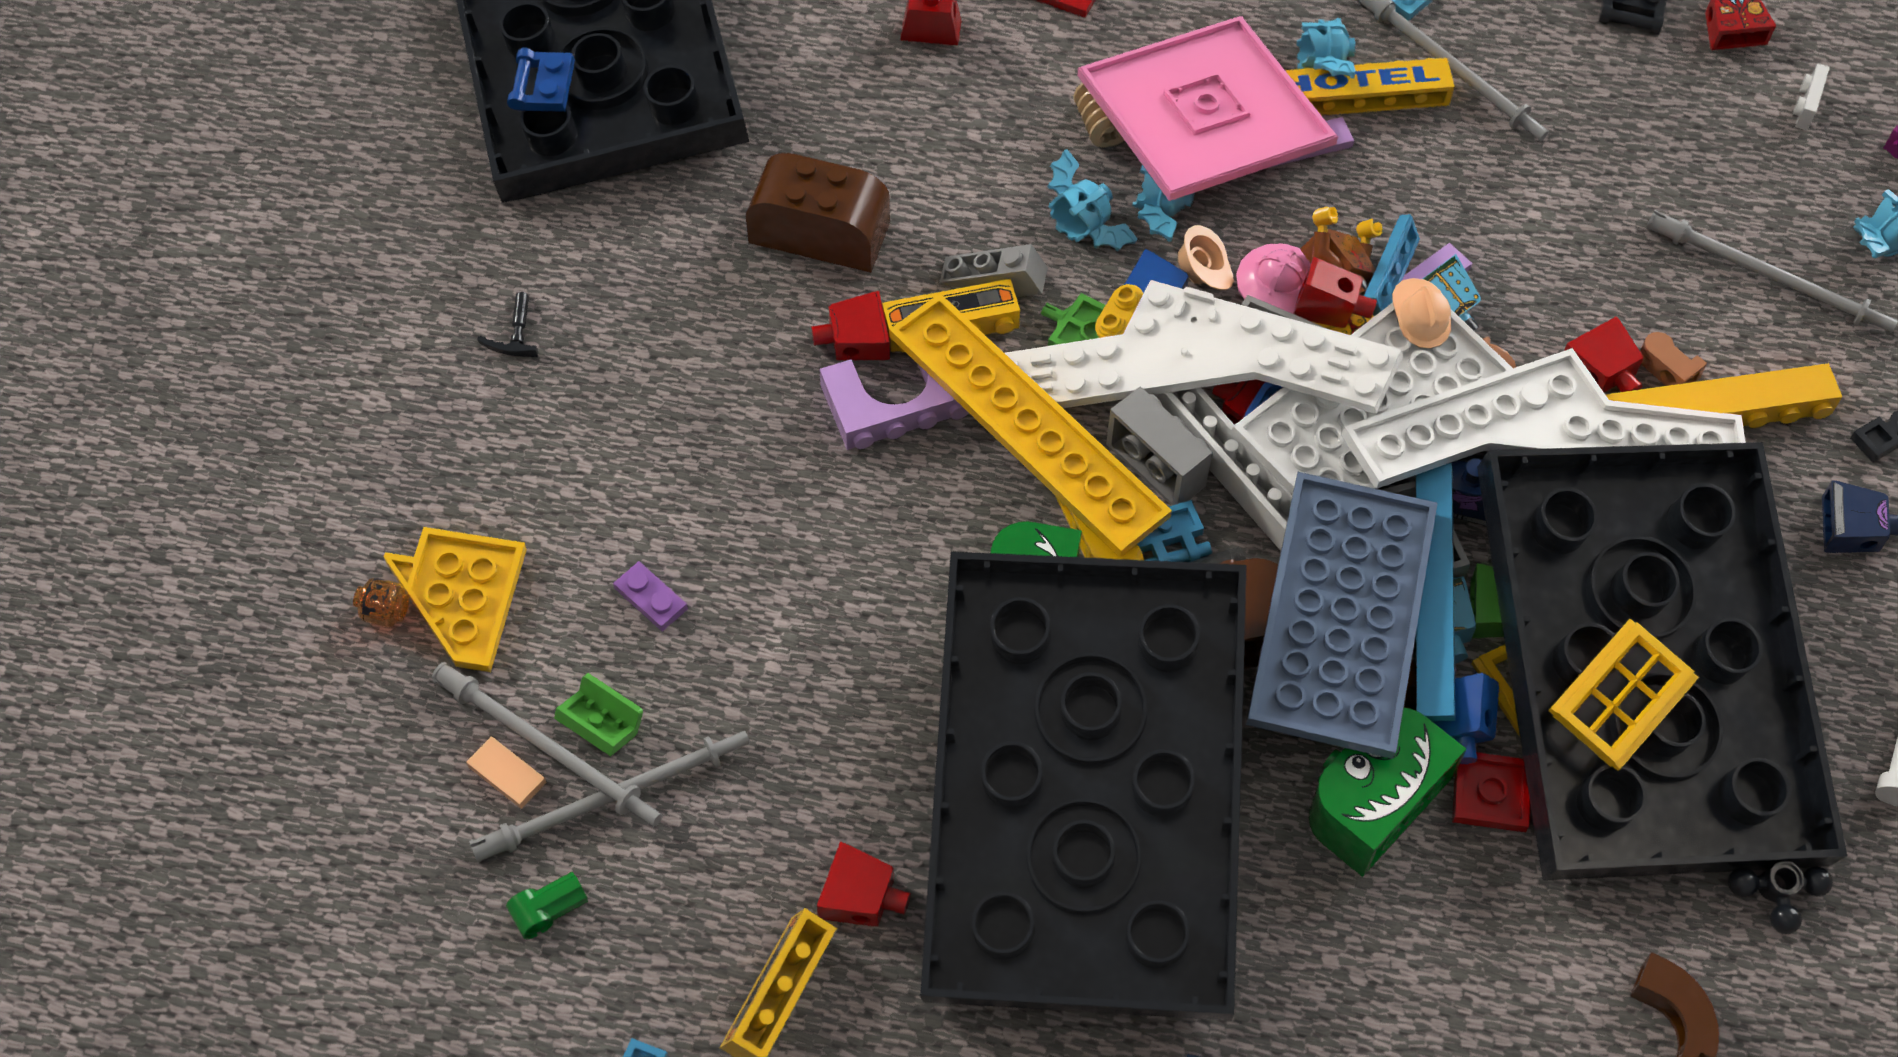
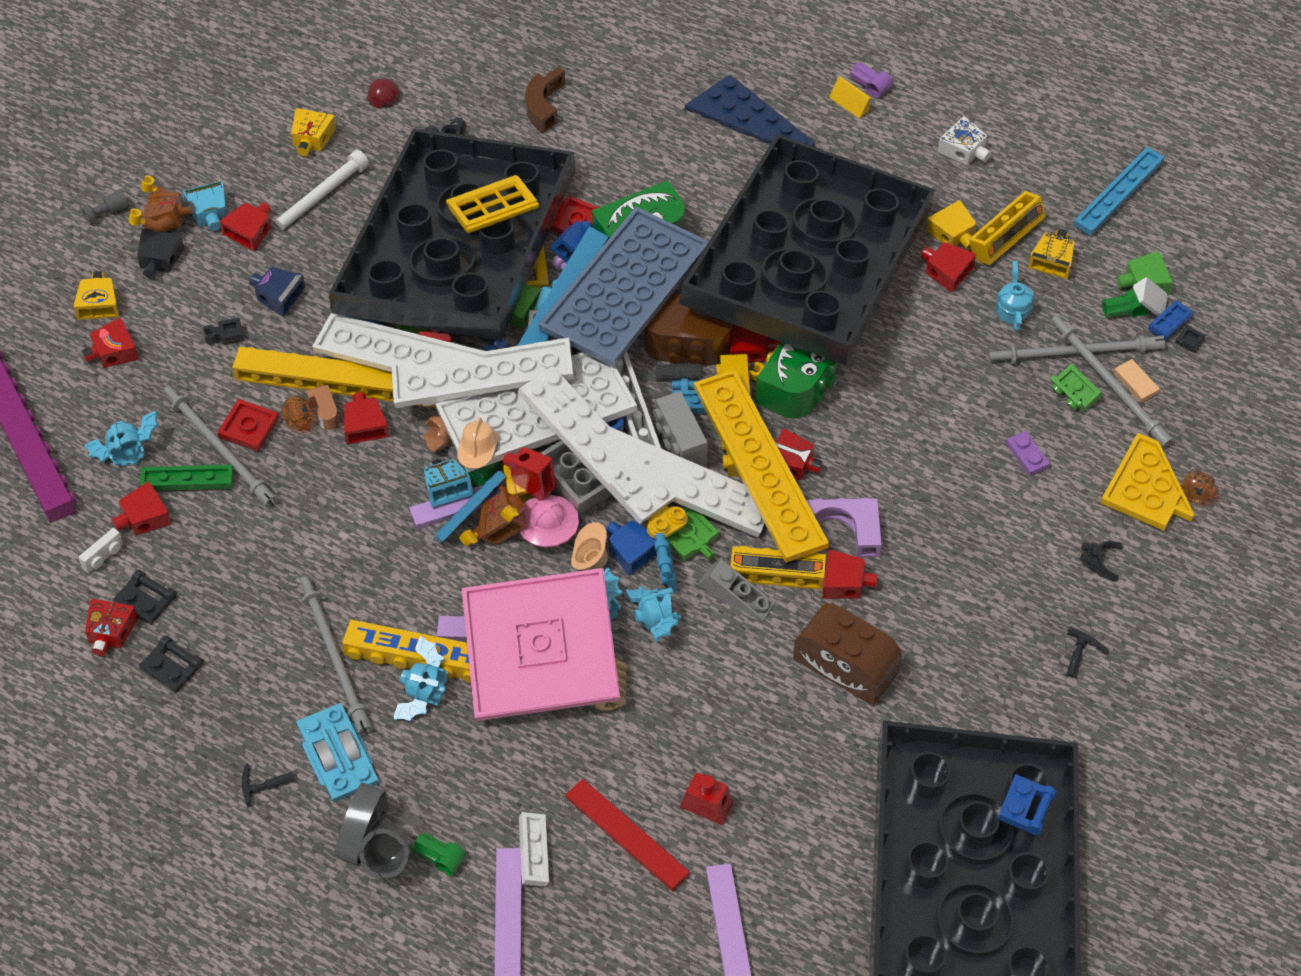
camera: 160 degrees left, 5 degrees down
(429, 880) = (1190, 339): none -> black tile
(466, 900) = (1170, 320): none -> blue plate
(505, 911) = (1151, 296): none -> white slope
(521, 971) = (1147, 266): none -> bright green torso
(522, 463) = (1092, 558): none -> black helmet
(687, 969) = (1053, 254): none -> yellow torso
(732, 851) = (1014, 300): none -> medium azure helmet
(871, 971) = (952, 225): none -> yellow torso
(987, 479) = (798, 454): none -> red torso
(1097, 267) = (665, 562): none -> dark azure plate
(1699, 338) = (297, 413): none -> clear orange head
(1723, 62) = (146, 606): none -> black plate
(1753, 310) = (248, 425): none -> red plate
(1779, 218) = (188, 477): none -> green plate
(1798, 157) = (142, 511): none -> red torso

